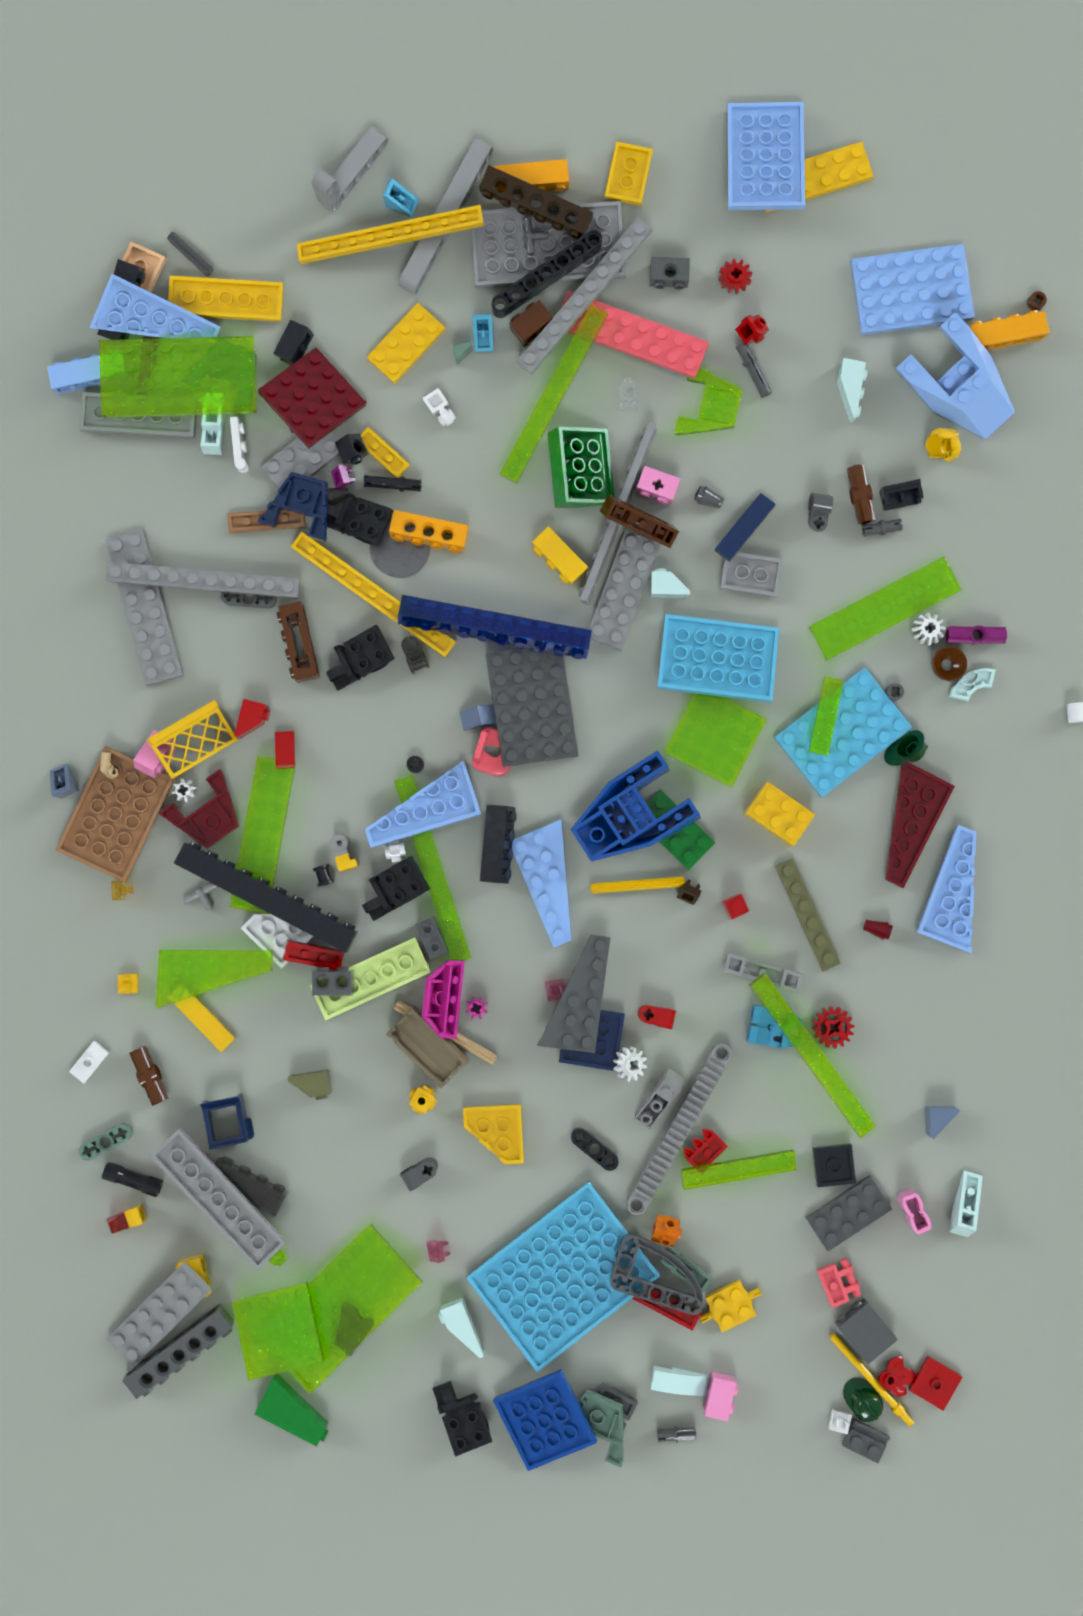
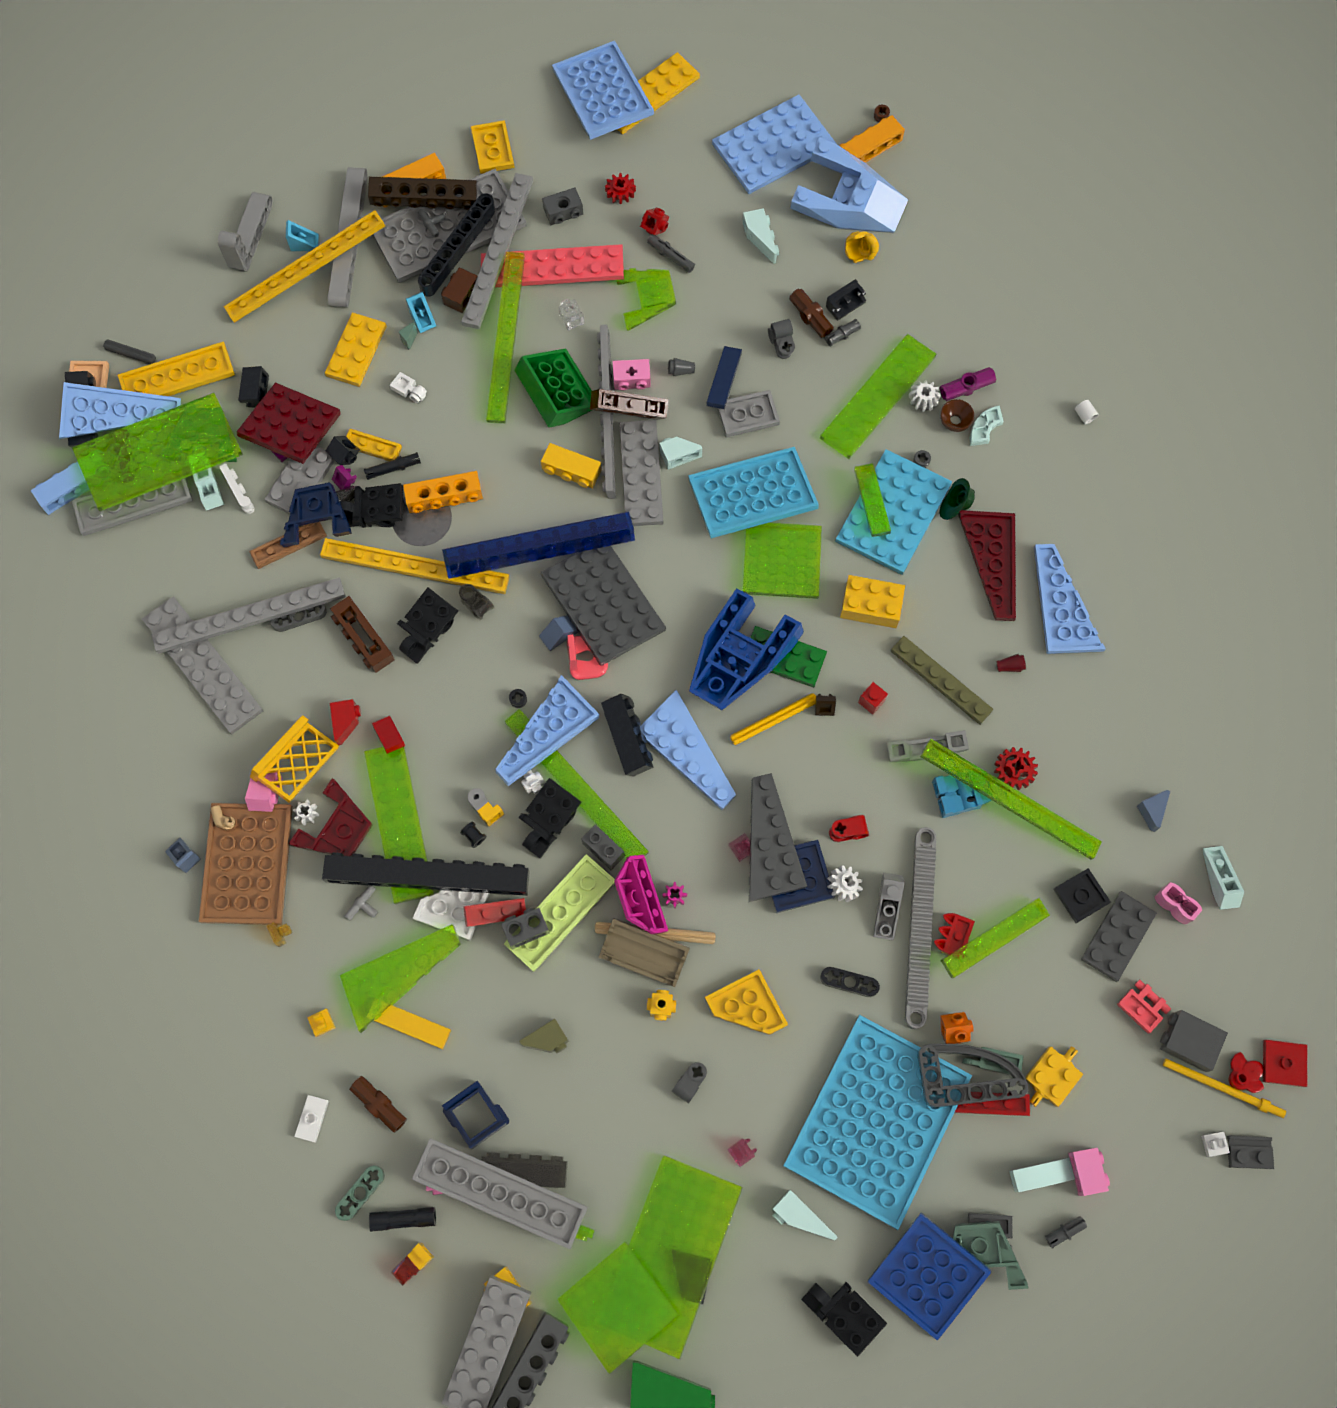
camera: 25 degrees left, 15 degrees down
(863, 1399) = (1226, 1112): dark green piece -> none

